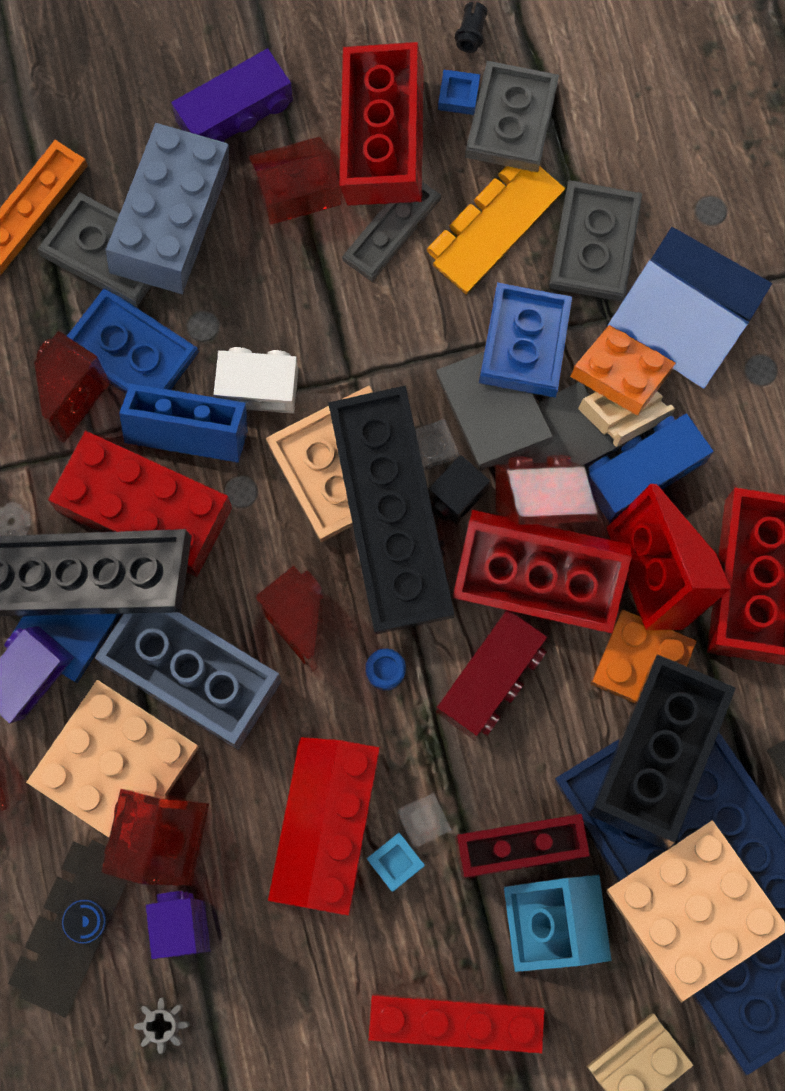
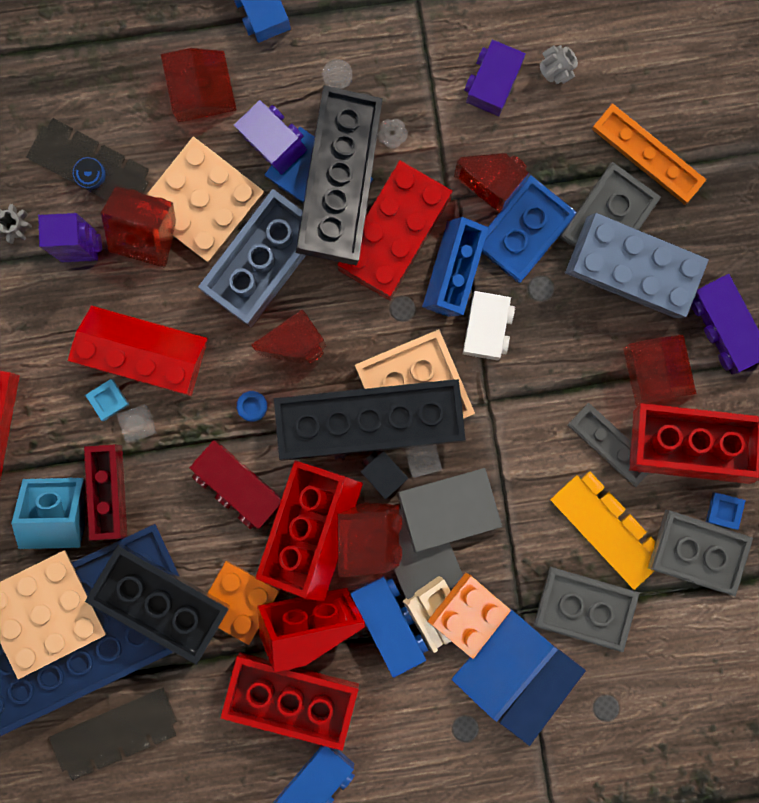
camera: 100 degrees right, 10 degrees up
(526, 340) = (502, 541): blue tile -> none

